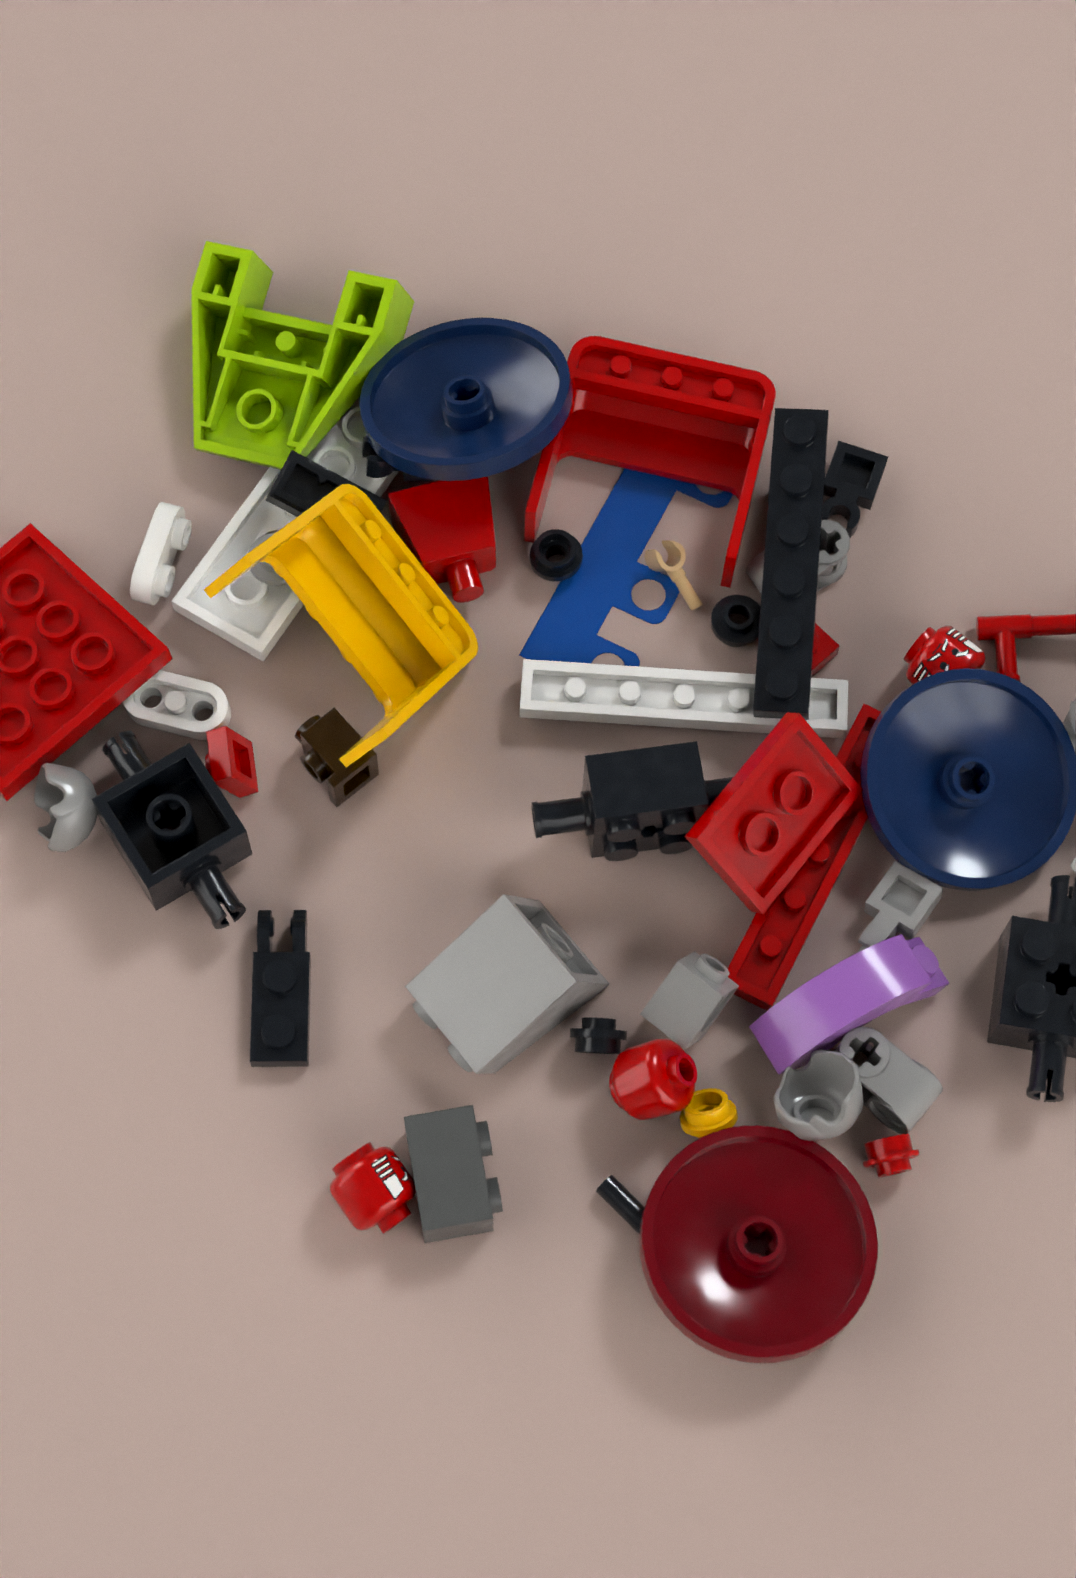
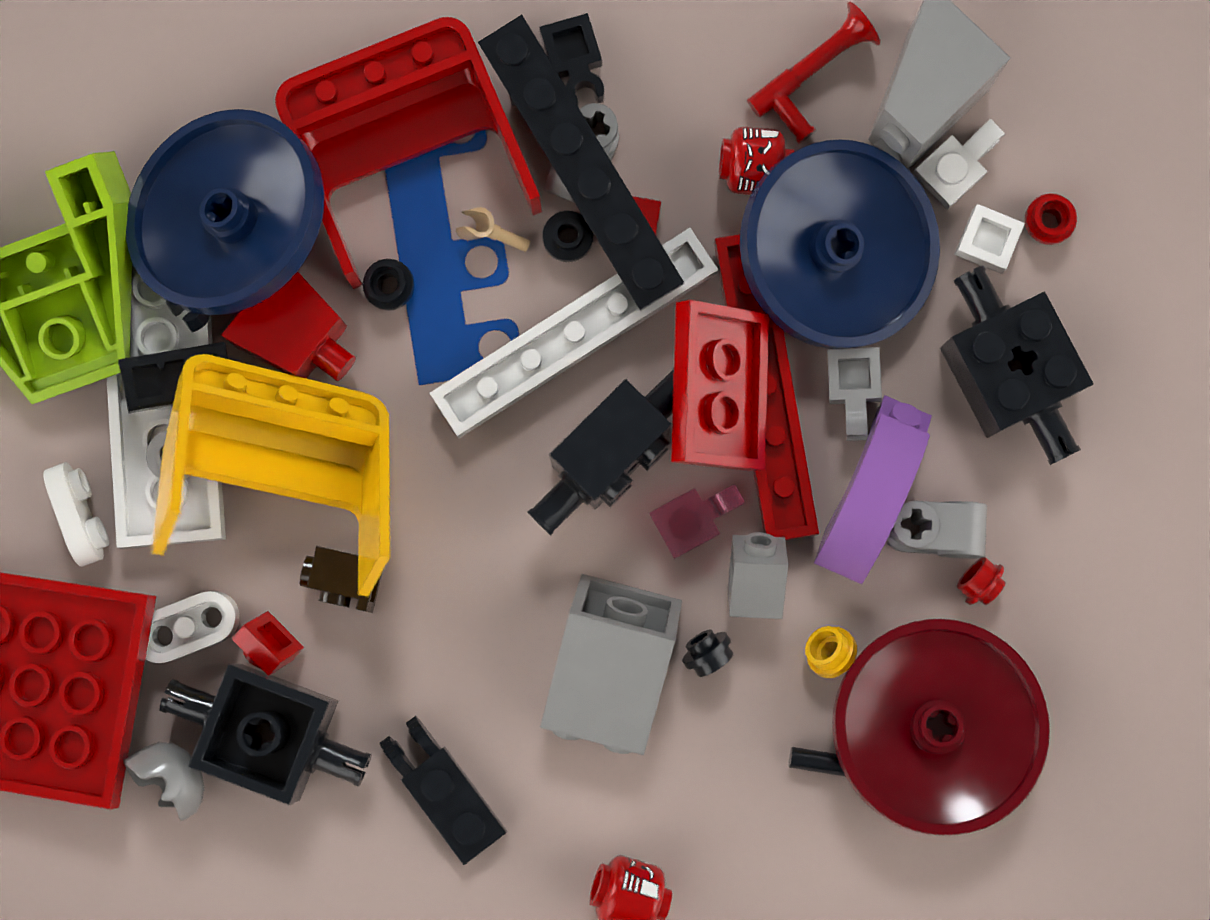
camera: 35 degrees left, 15 degrees up
(450, 1173) = (678, 840): dark grey brick -> none
(653, 1079) = (775, 658): red head -> none
(664, 918) = (689, 521): none -> clear pink plate
(820, 1097) = (909, 585): light grey hair -> none

